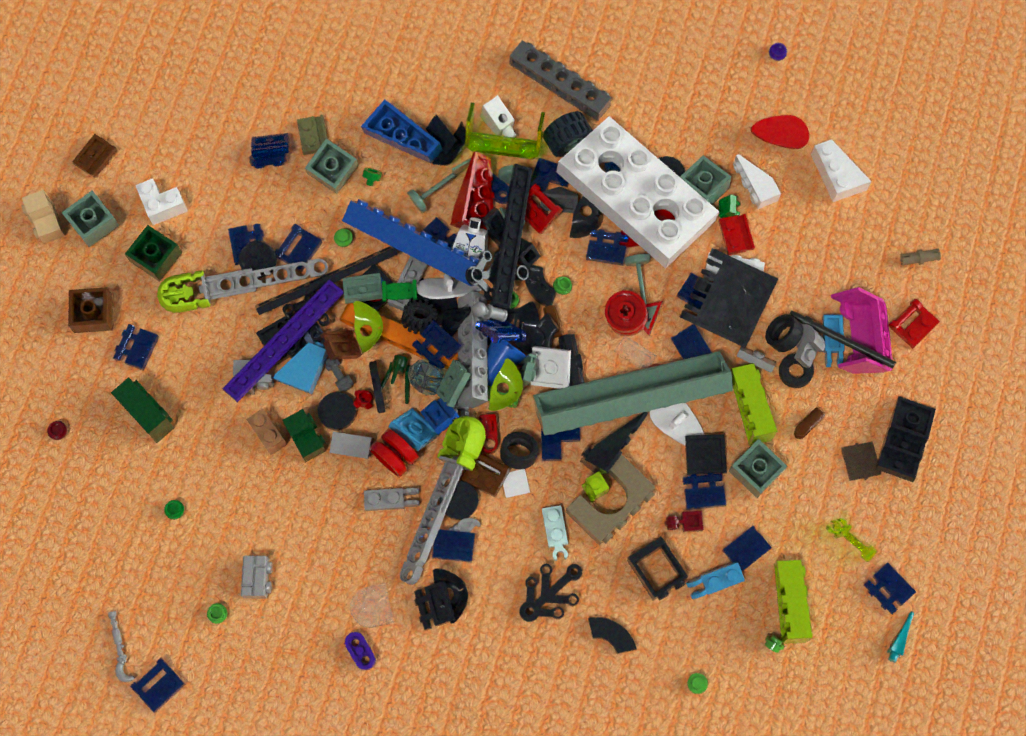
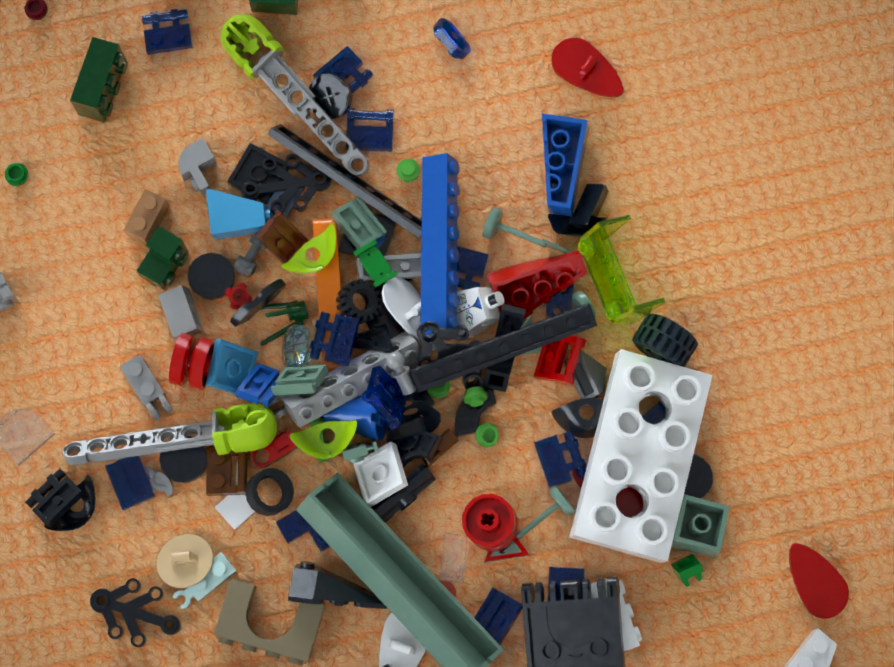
camera: 60 degrees right, 5 degrees up
(270, 145) = (467, 31): clear blue plate -> none
(283, 341) = (251, 176): dark purple tile -> none
(312, 133) = (509, 69): olive plate -> none
(331, 166) = (479, 110): sand green brick -> none
(343, 86) = (586, 68): none -> red shield
(371, 175) = (496, 158): green tile -> none
(498, 118) = (645, 248): white torso -> none
(532, 276) = (475, 396): none -> bright green plate
(533, 537) = (184, 561): none -> tan shield
(545, 174) = (606, 342): clear blue plate -> none
(548, 79) = (743, 239): dark grey brick -> none
(595, 486) = (275, 596): lime brick -> none
(736, 234) = (661, 595): red plate -> none
(759, 184) = (736, 590): white slope -> none

